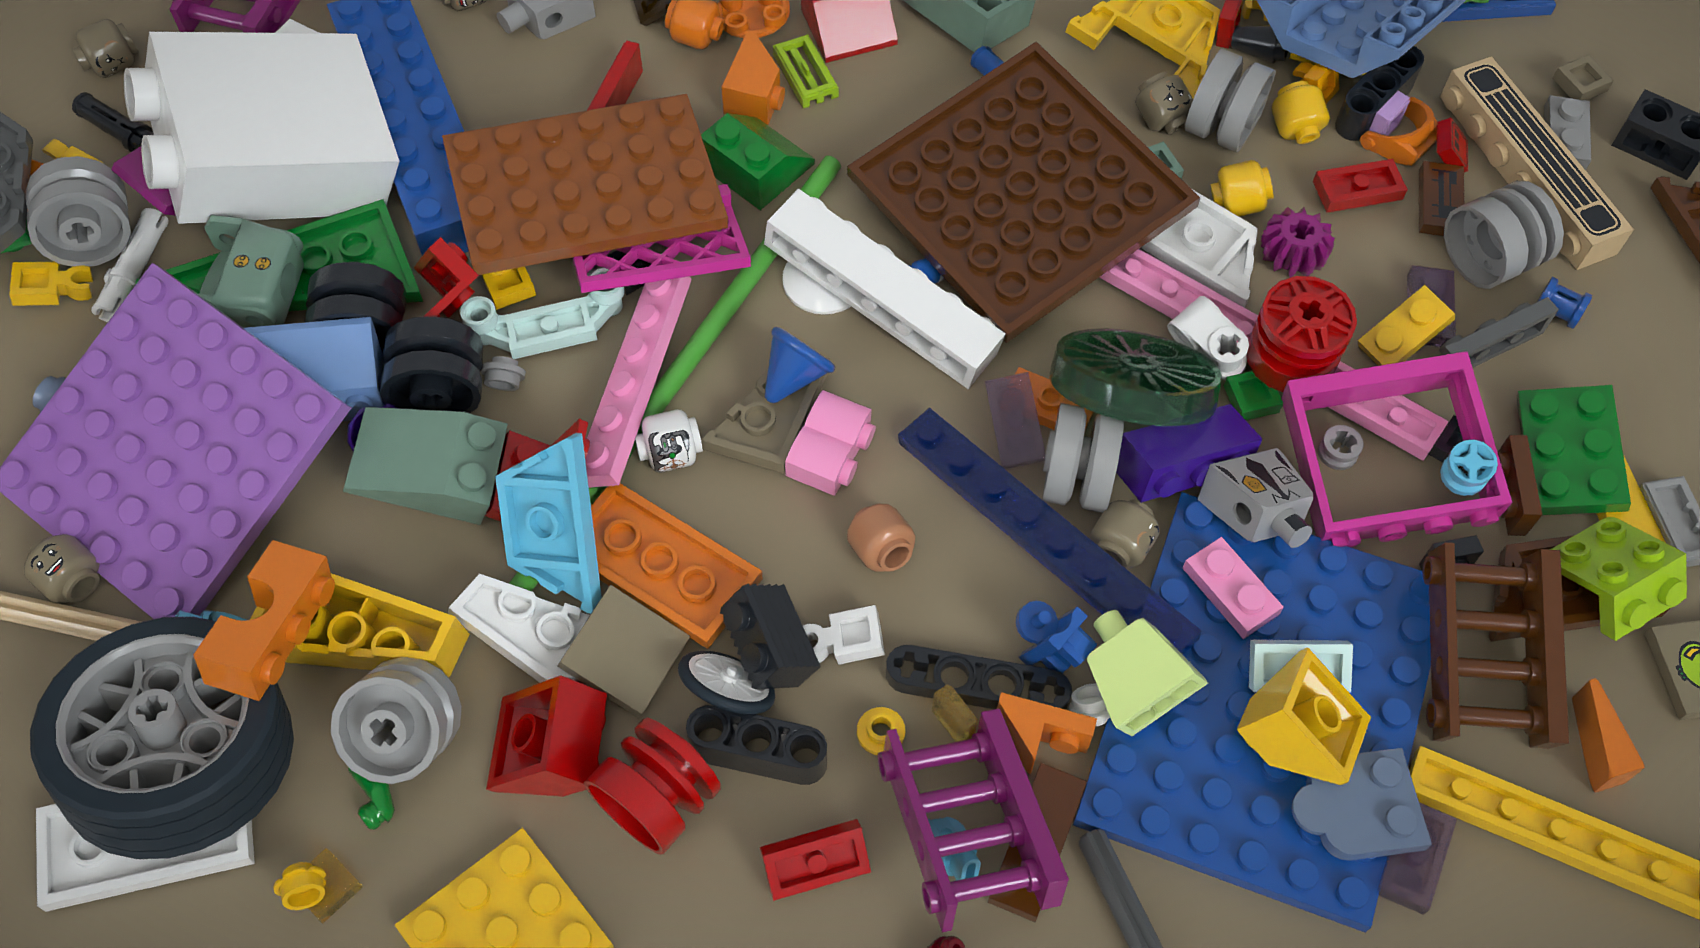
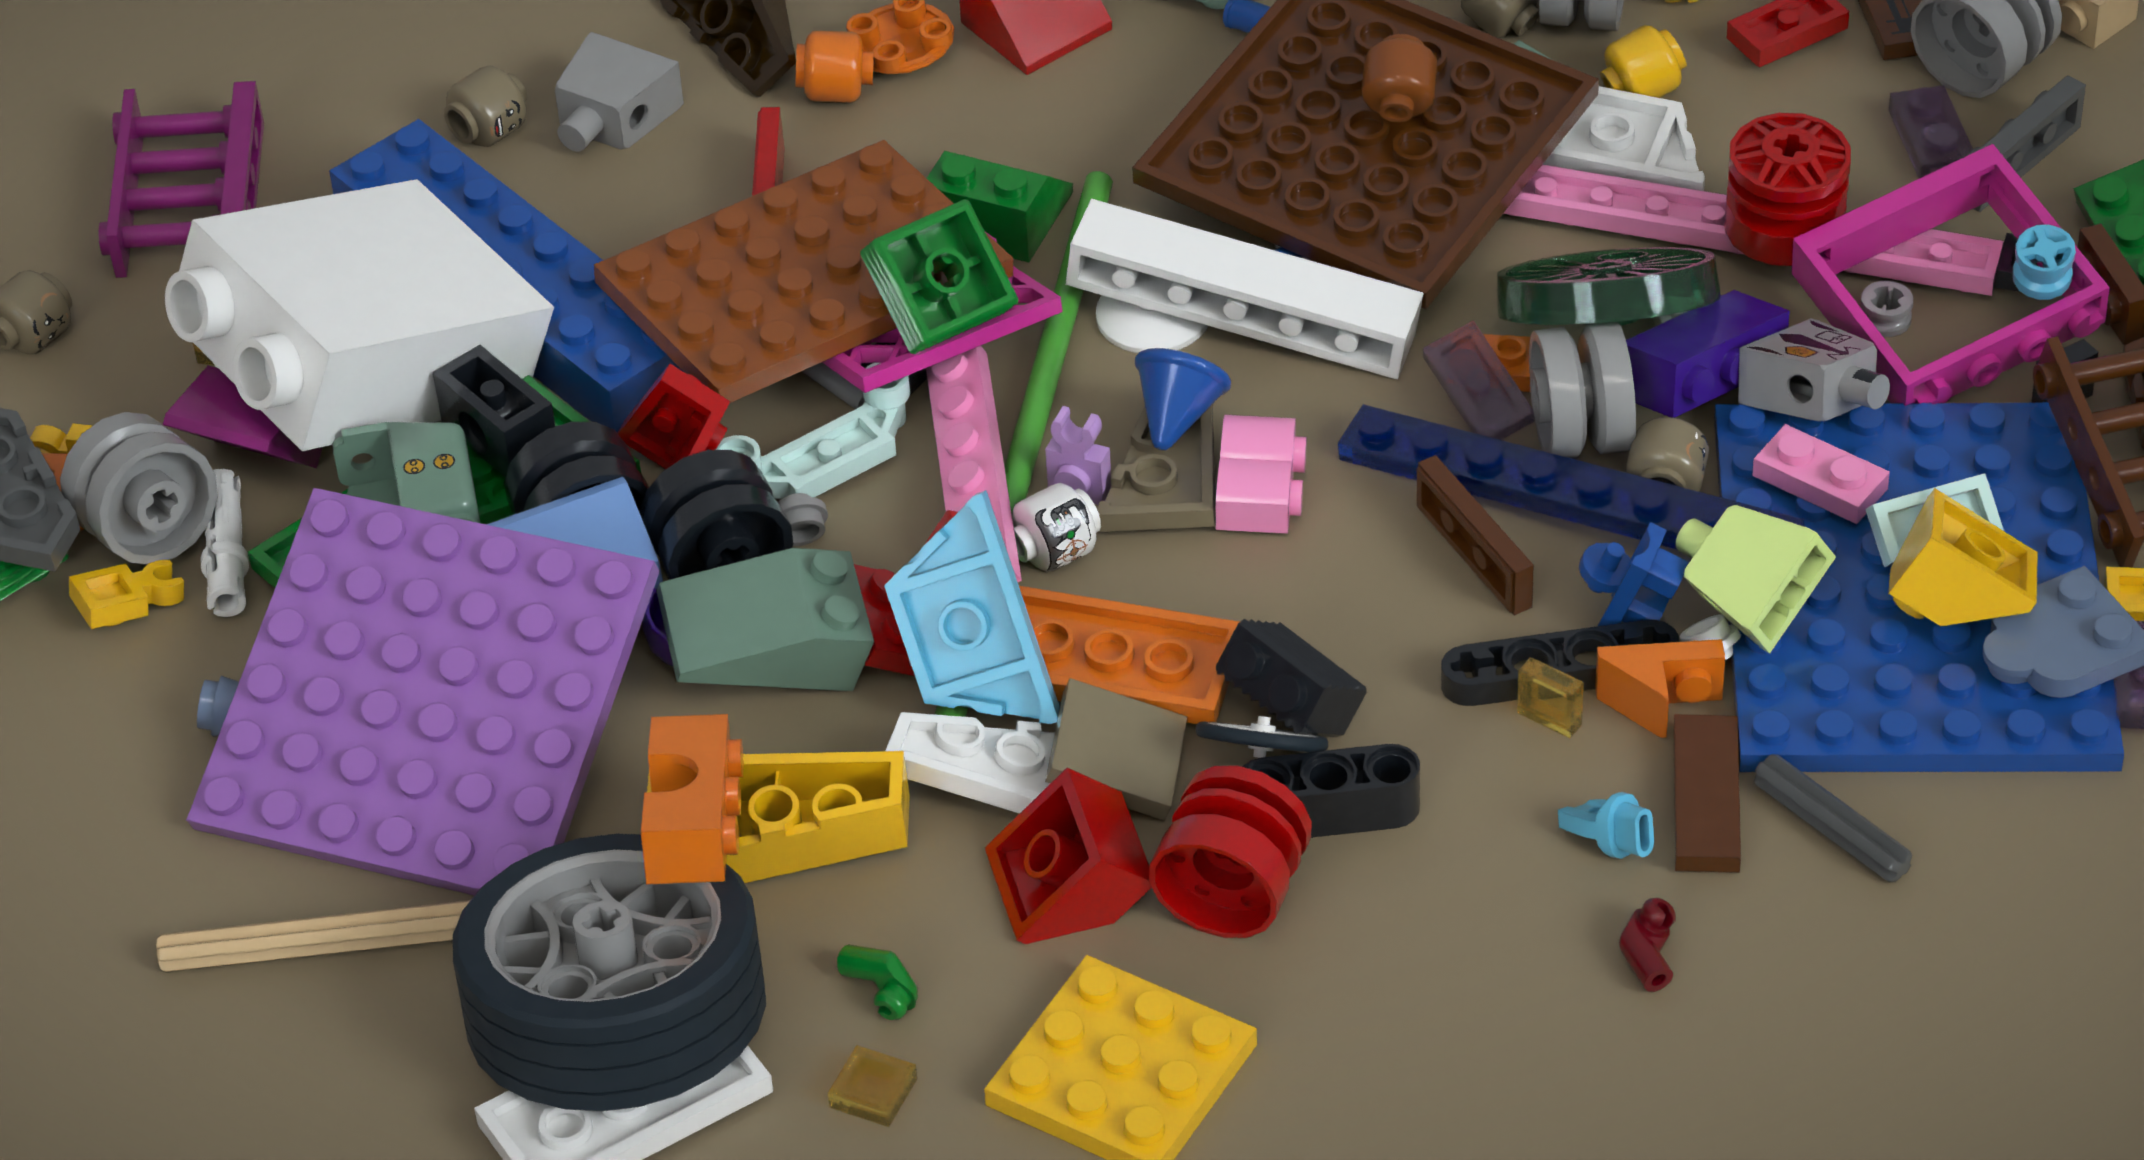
camera: 15 degrees left, 15 degrees down
(62, 569) = (349, 872): dark tan head -> none
(111, 121) = (100, 394): black pin -> none
(301, 886) = (856, 1074): yellow plate -> none
(325, 223) = (491, 406): none -> black brick
(396, 720) = (925, 869): light grey wheel -> none
(509, 286) = (755, 418): yellow plate -> none
(681, 241) = (946, 243): none -> green brick
(704, 392) = (1076, 459): none -> lavender plate
(753, 82) = (951, 113): orange slope -> none
(815, 92) = (999, 92): lime tile -> none
(815, 859) = (1455, 878): red plate -> none
(851, 637) = (1388, 656): white plate -> none
(867, 738) = (1468, 743): yellow plate -> none
(881, 538) = (1372, 549): nougat head -> none
(959, 550) = (1475, 535): none -> reddish brown tile
(1006, 784) = (1634, 727): magenta fence -> none
(1054, 157) = (1399, 78): none -> dark orange head
(1210, 332) = (1677, 219): white piece -> none
(1252, 396) = (1757, 279): green plate -> none
(1297, 242) = (1731, 99): magenta gear -> none
(1407, 328) = (1917, 148): yellow plate -> none
(1570, 303) = (2099, 79): blue bush -> none

